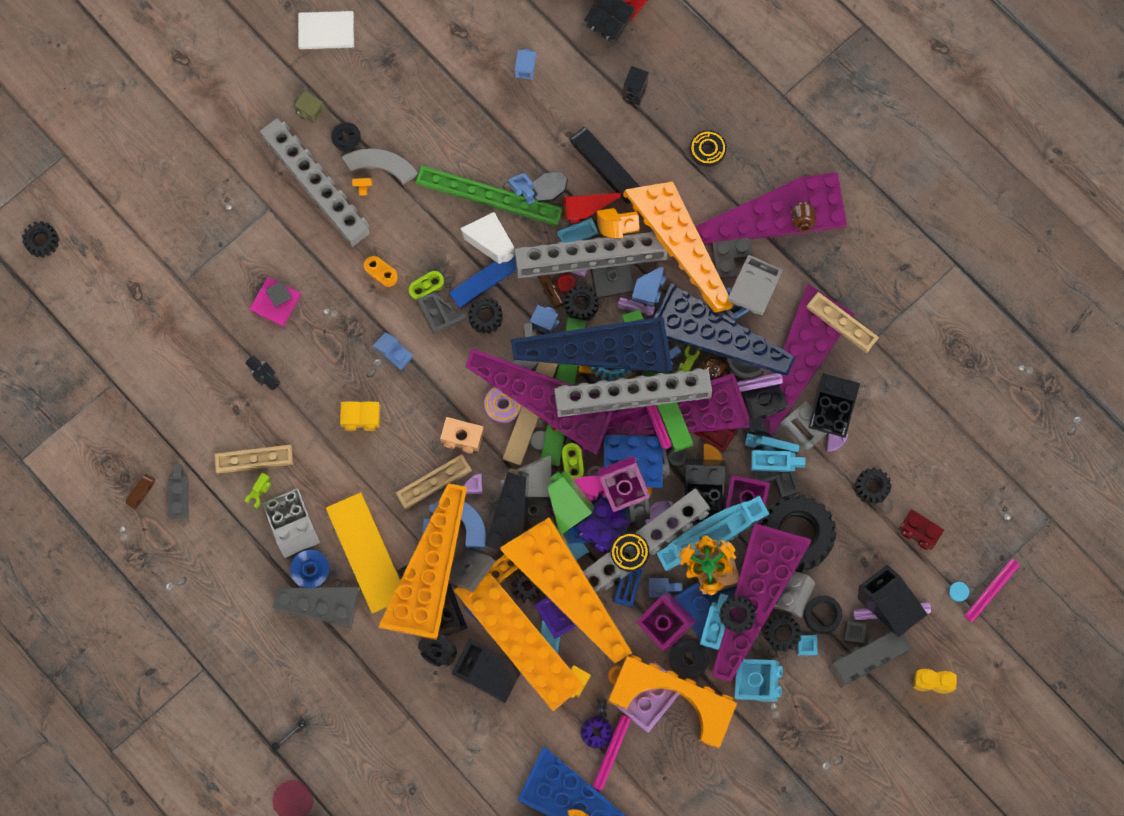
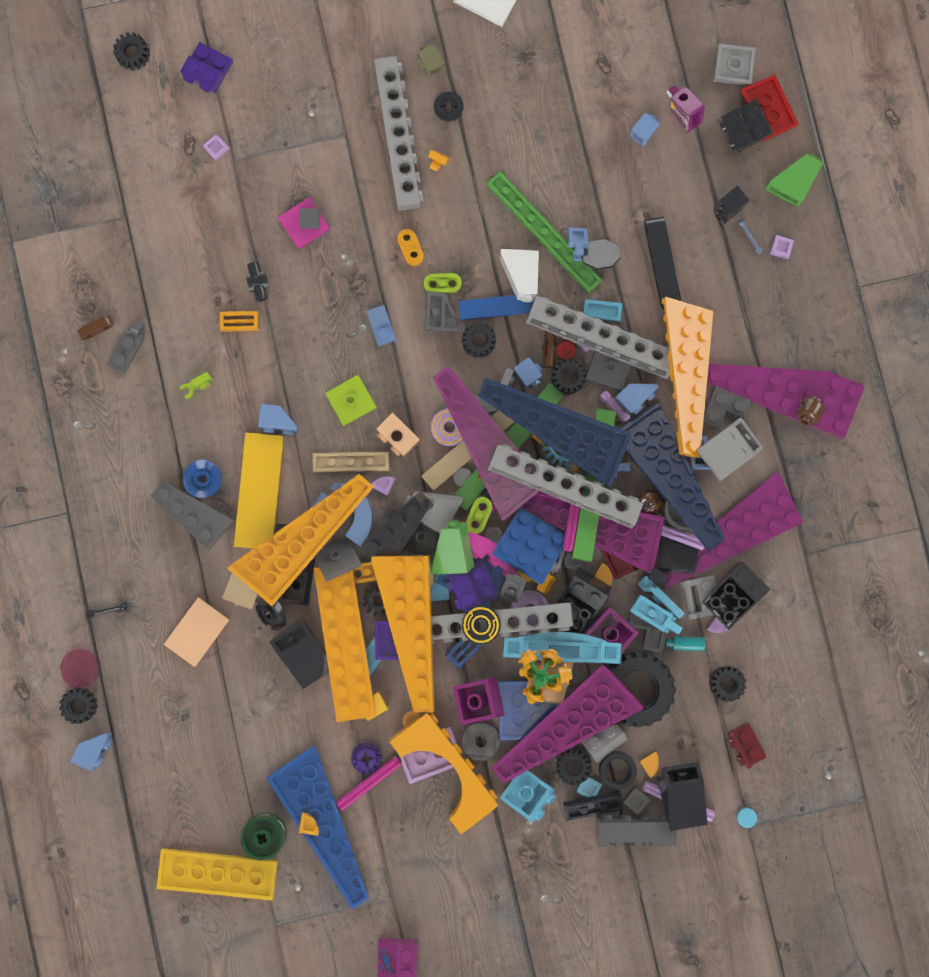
camera: 25 degrees right, 10 degrees up
(114, 218) = (206, 68): none -> dark purple plate
(160, 280) = (216, 147): none -> lavender tile
(253, 459) = (208, 353): tan tile -> none
(270, 421) = (239, 321): none -> light orange tile
(291, 523) = (208, 429): light grey slope -> none
(346, 480) = (275, 418): none -> medium blue slope
(360, 415) = (320, 367): yellow brick -> none
(380, 159) = (468, 145): light grey tile -> none
(380, 707) = (196, 632): none -> light nougat tile
(399, 647) = (239, 593): none -> tan piece
(403, 429) = (351, 400): none -> lime plate
(550, 28) = (686, 107): none -> magenta torso
(583, 206) = (623, 290): red slope -> none
(601, 707) = (382, 740): black bush -> none
(615, 225) = (638, 323): light orange brick -> none
(623, 483) = (508, 565): magenta slope -> none
(661, 586) = (492, 666): medium blue plate -> none
(665, 492) = (547, 585): none -> light orange tile
(678, 37) = (796, 180): none -> bright green slope
(680, 111) = (758, 250): none -> sand blue hinge
(687, 366) = (626, 486): lime plate -> none
(699, 97) = (781, 246): none -> lavender tile
(712, 138) = (773, 295): black tile -> none
(713, 627) = (520, 727): medium azure hinge -> none
(749, 610) = (553, 728): black tyre -> none
(817, 472) = (686, 643): none -> teal cylinder
(819, 658) = (593, 805): none -> black tile
(842, 322) = (787, 525): tan tile -> none
(848, 593) = (650, 763): none -> light orange tile
(940, 682) = (677, 882): yellow brick -> none
(992, 590) = (776, 833): dark pink axle -> none

